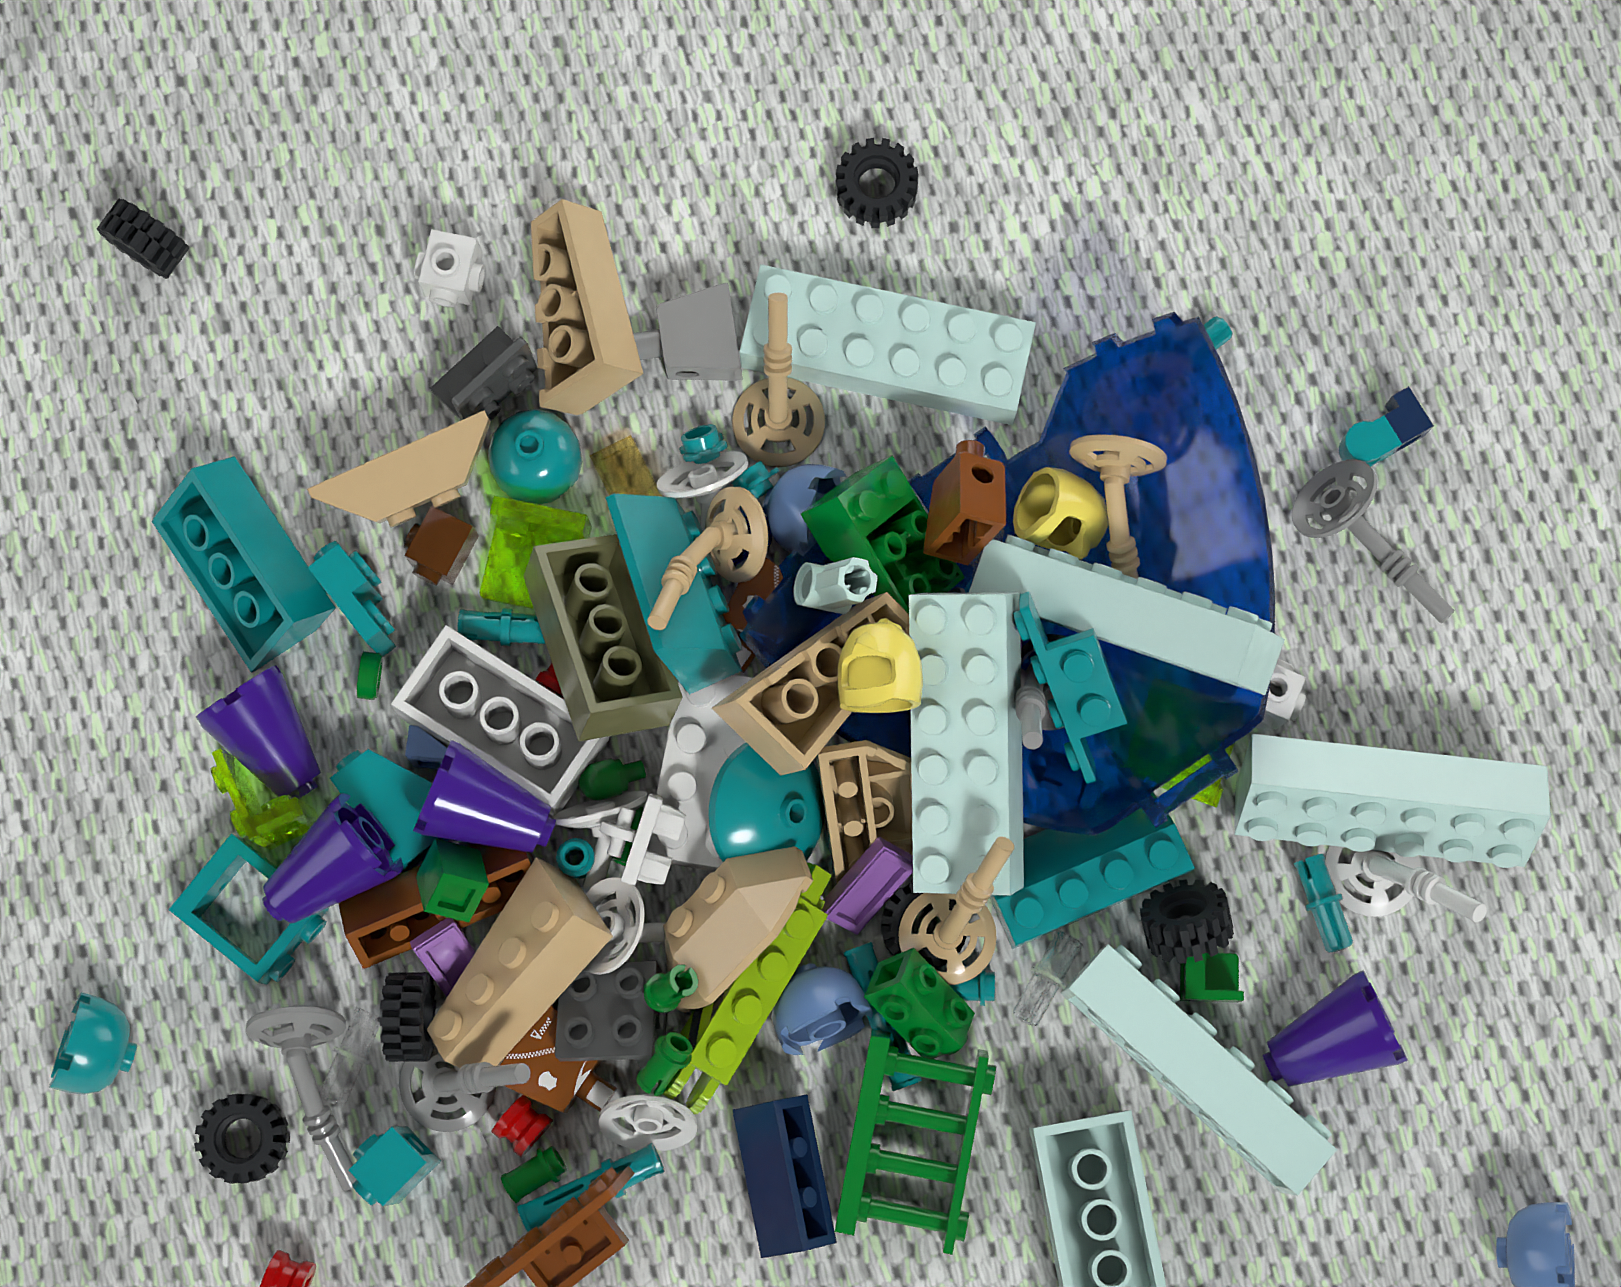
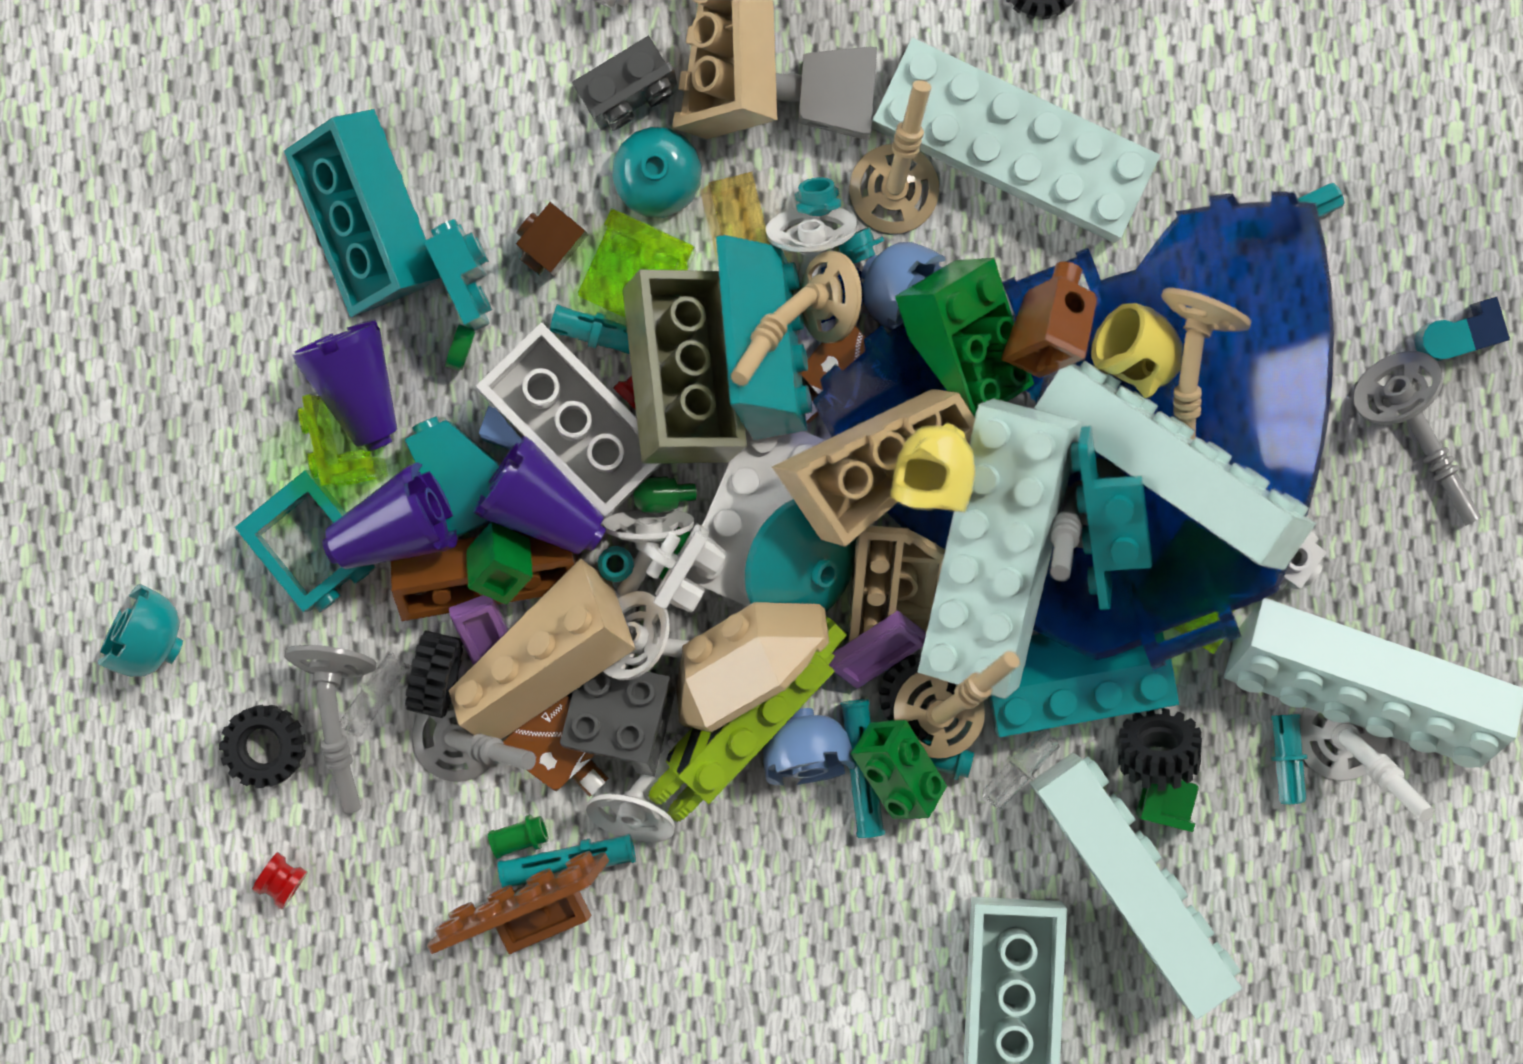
camera: 10 degrees right, 10 degrees up
(391, 1165) = (392, 804): teal brick -> none
(410, 475) = (534, 171): tan wedge -> none
(522, 1125) = (516, 793): red wheel -> none
(666, 990) = (673, 709): green pin -> none
(670, 1055) = (665, 769): green pin -> none
(784, 1176) = (742, 892): dark blue brick -> none
(834, 585) = (911, 375): light aqua piece -> none
(867, 1157) = (839, 852): green fence -> none
(1336, 1037) = (1268, 883): dark purple cone -> none

